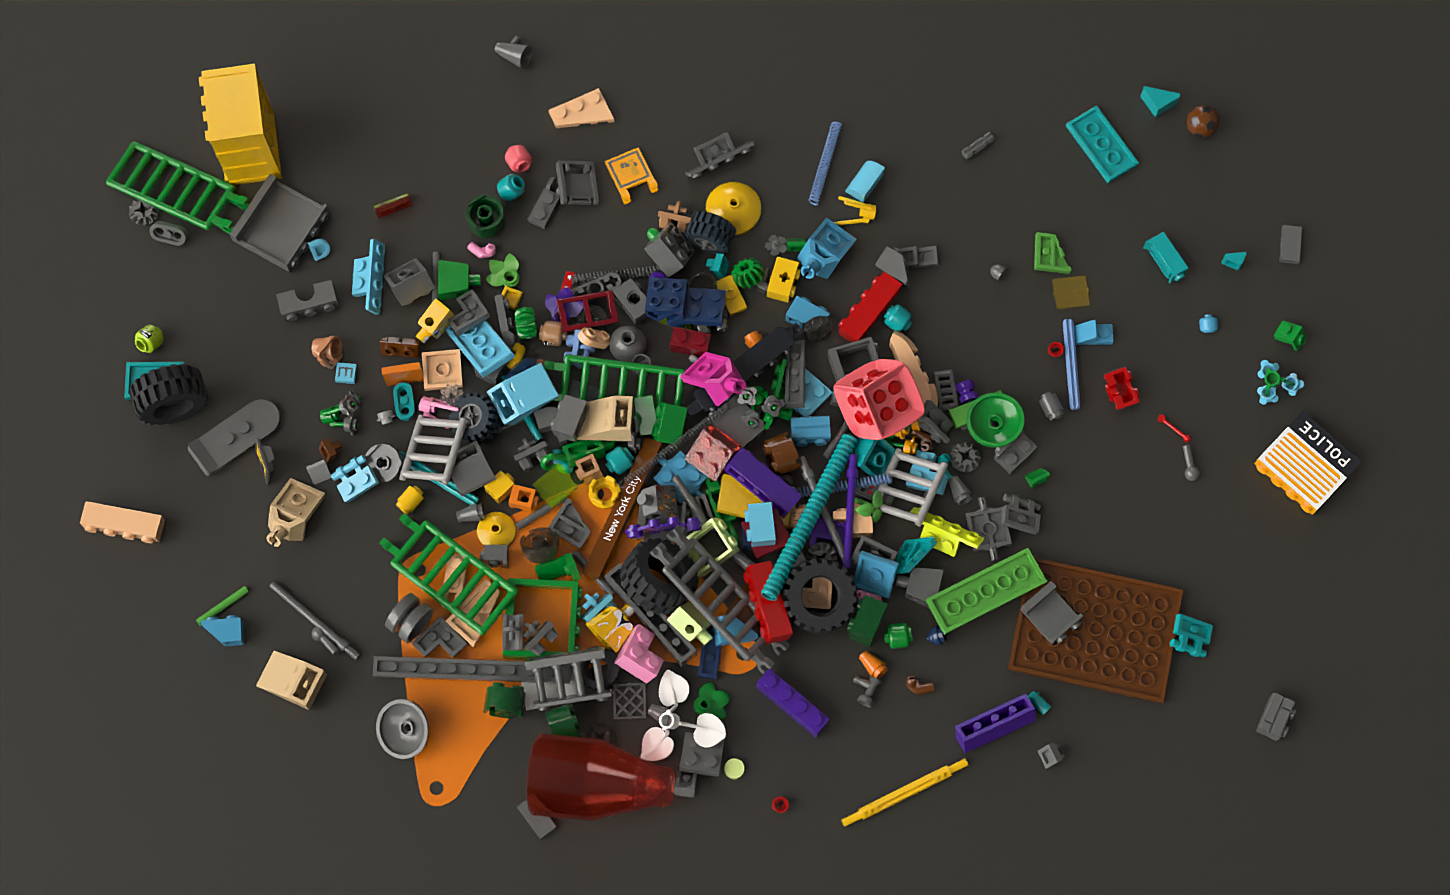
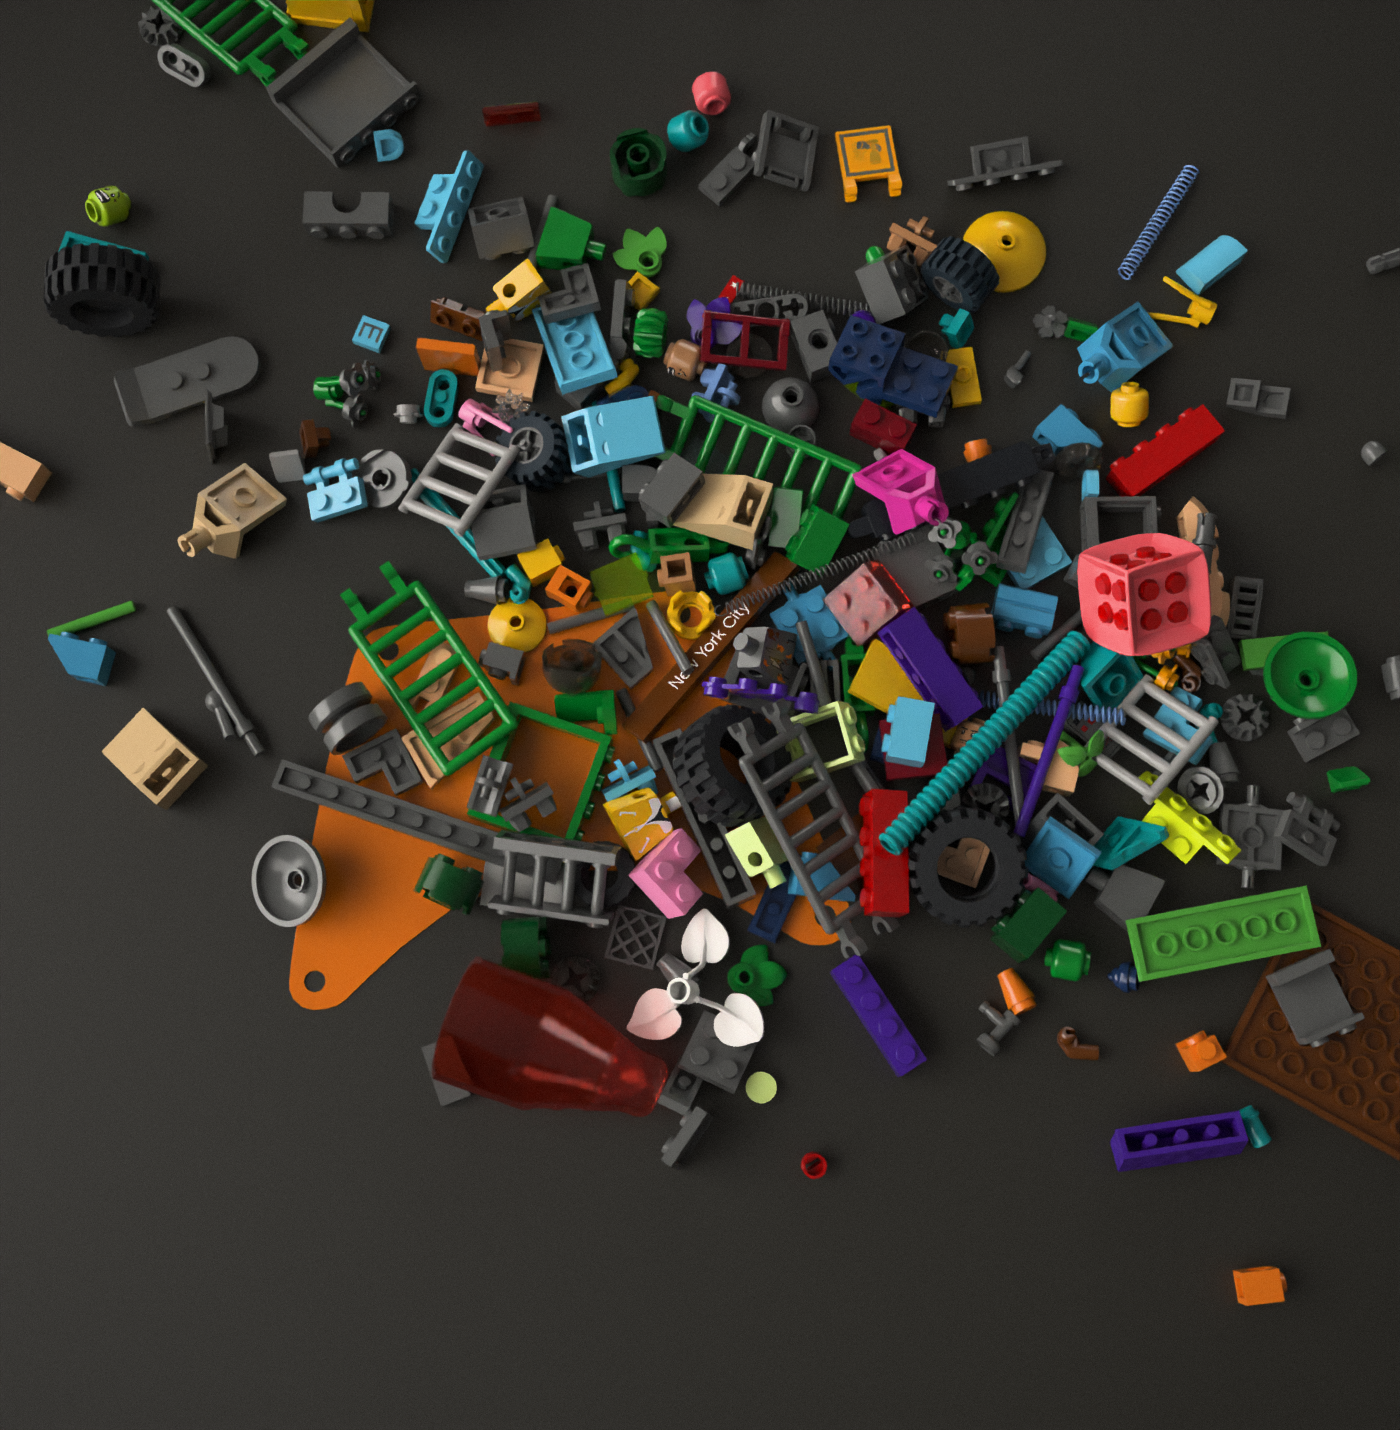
camera: 20 degrees right, 5 degrees up
(327, 348) = (356, 290): nougat piece -> none
(410, 499) = (405, 543): yellow brick -> none
(427, 351) = (494, 331): none -> dark grey bracket
(483, 252) = (620, 214): bright pink arm -> none
(492, 504) = (521, 584): none -> teal arm
(582, 110) = (826, 49): light nougat wing -> none
(594, 338) = (743, 383): light nougat plate -> none
(595, 510) = (669, 637): none -> dark grey bar
(695, 817) = (679, 1148): none -> dark grey plate
(747, 273) = (997, 350): green gear -> none
(783, 269) = (1051, 360): yellow brick -> none
(829, 340) = (1090, 484): none -> medium azure tile
(839, 284) = (1129, 404): none -> yellow head
(895, 265) = (1221, 397): dark grey slope -> none
(897, 318) = (1202, 480): teal head -> none
(904, 792) = (1008, 1203): yellow axle -> none
(908, 356) = (1205, 535): none -> dark grey pin
(943, 511) = (1188, 788): none -> dark grey gear
(967, 392) = (1275, 618): dark purple wheel -> none
(994, 666) = (1200, 1051): none -> orange brick
(1050, 755) = (1249, 1215): dark grey tile -> none
(1068, 794) = (1259, 1285): none -> orange brick

